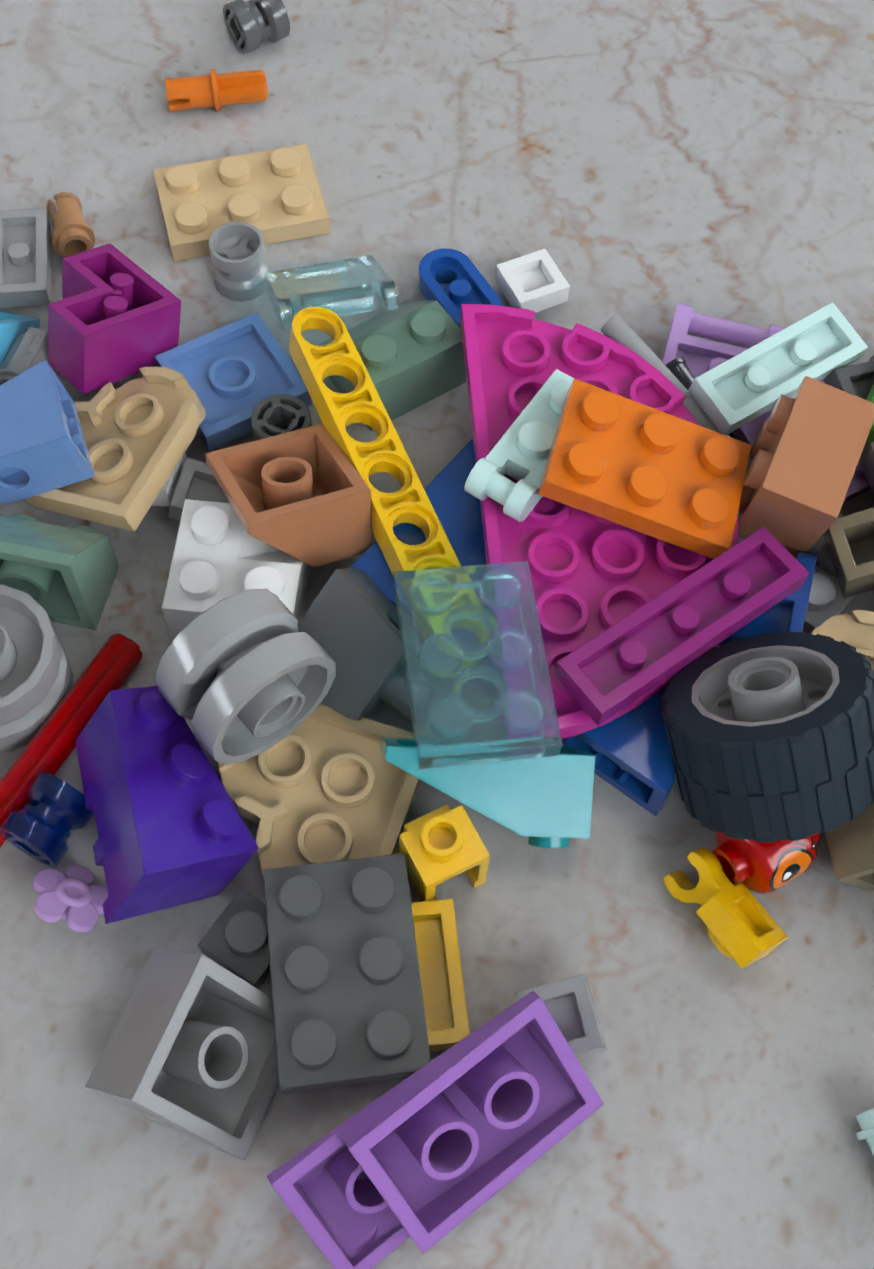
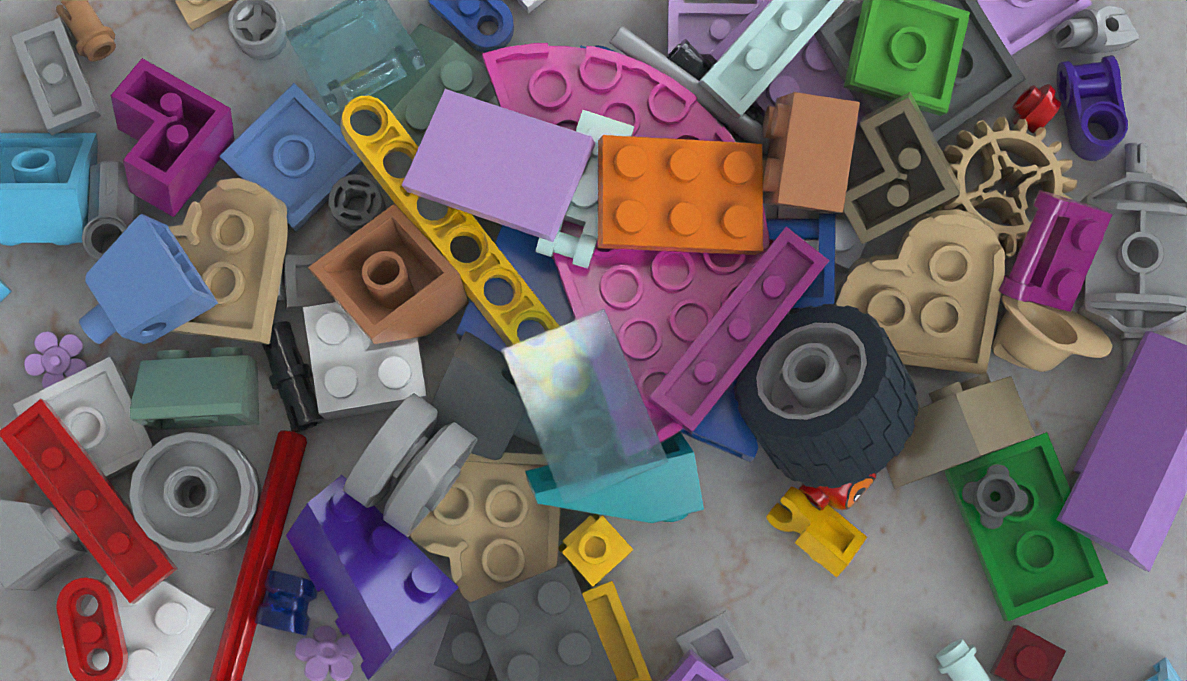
camera: 15 degrees left, 20 degrees up
(146, 583) = (291, 378): none -> black pin
(450, 393) = (499, 164): none -> lavender tile

